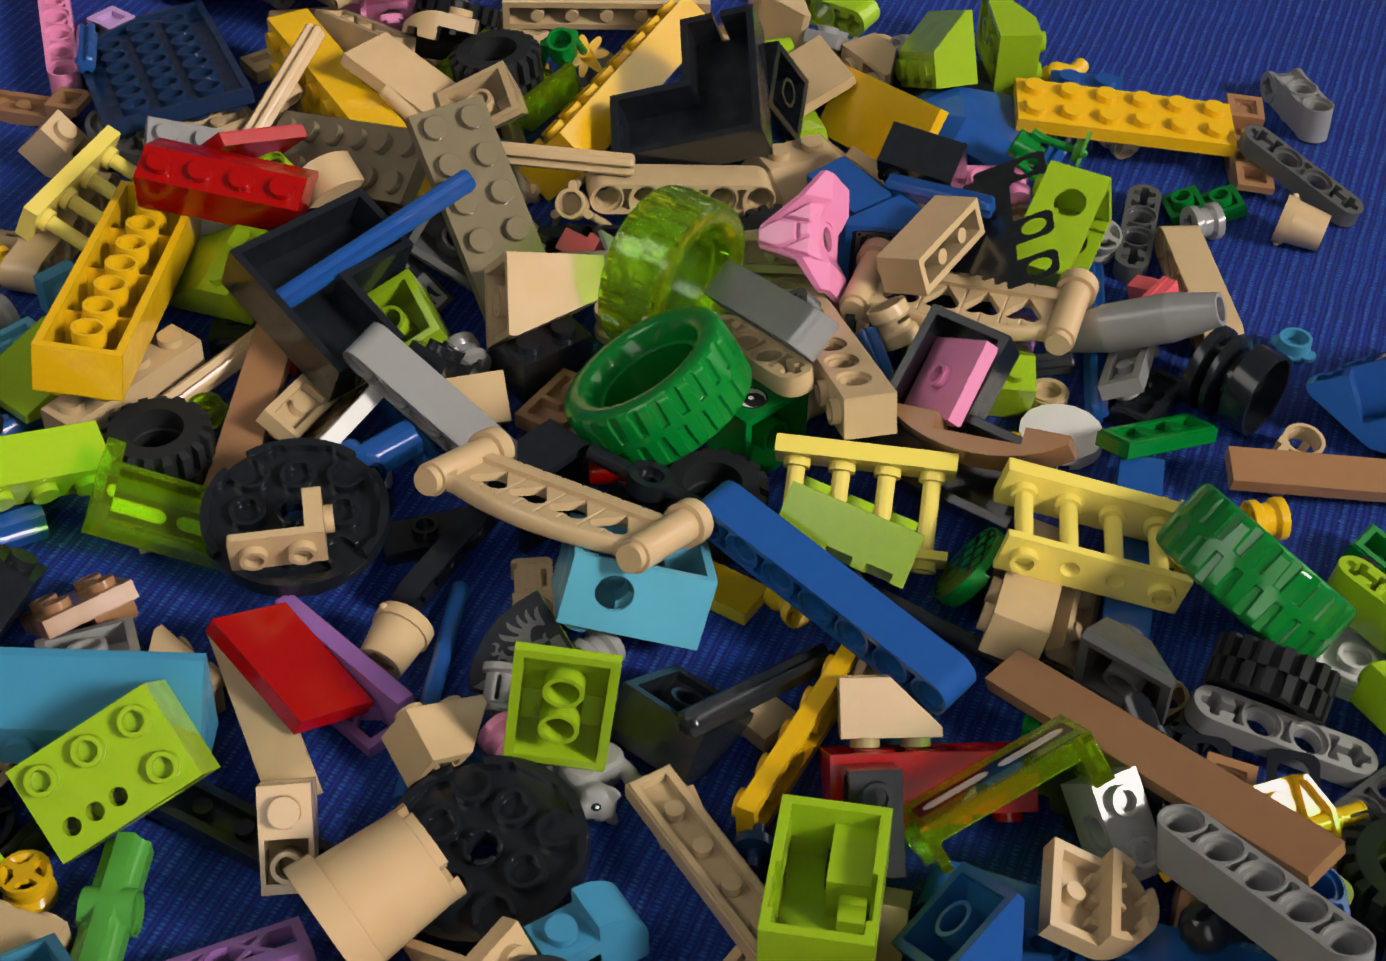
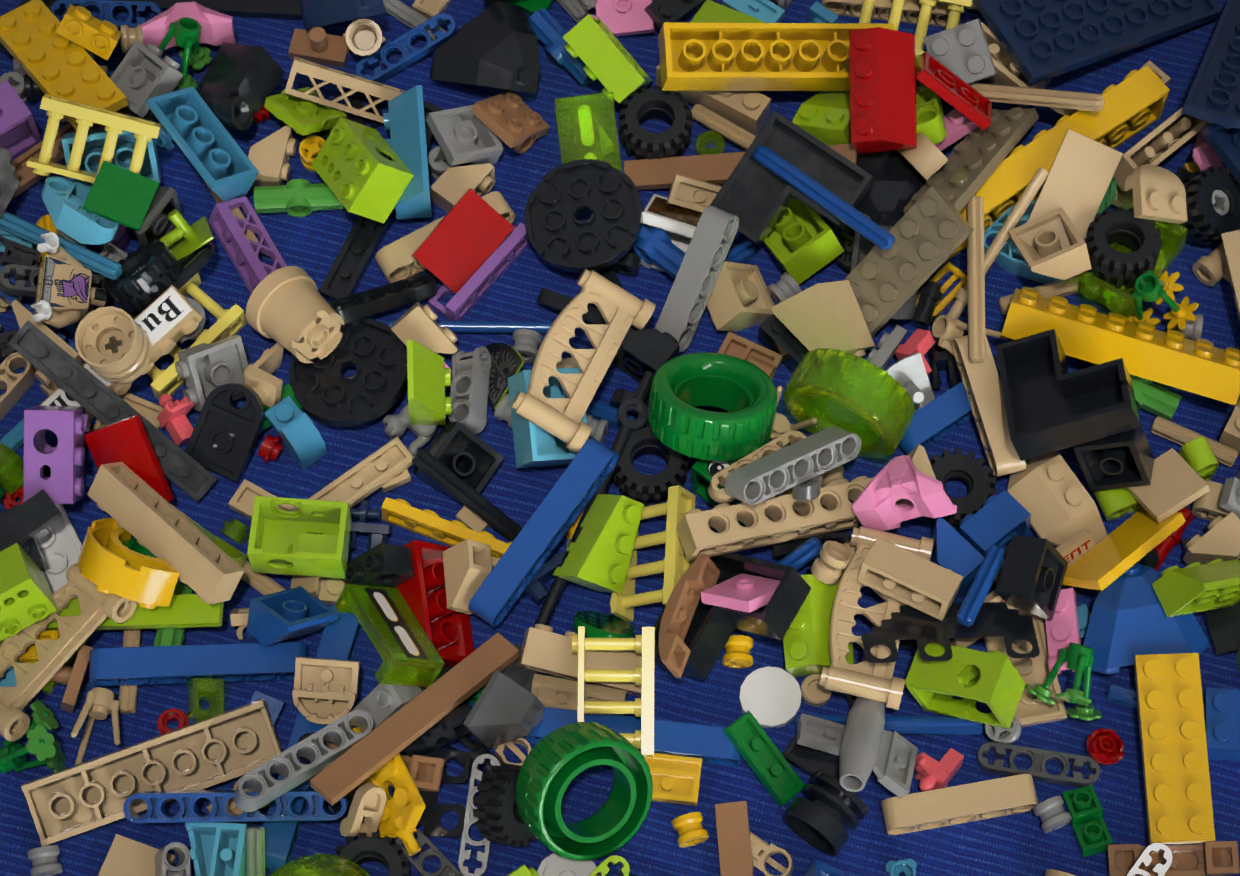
camera: 85 degrees right, 25 degrees up
(285, 829) = (343, 267): tan slope -> none
(286, 545) = (555, 227): tan bracket -> none
(345, 754) = (385, 297): none -> black beam
(397, 637) = (507, 296): tan piece -> none
(442, 357) = (747, 270): black plate -> none
(476, 623) = (527, 343): none -> light grey wheel
(1122, 177) = (1105, 746): none -> red plate

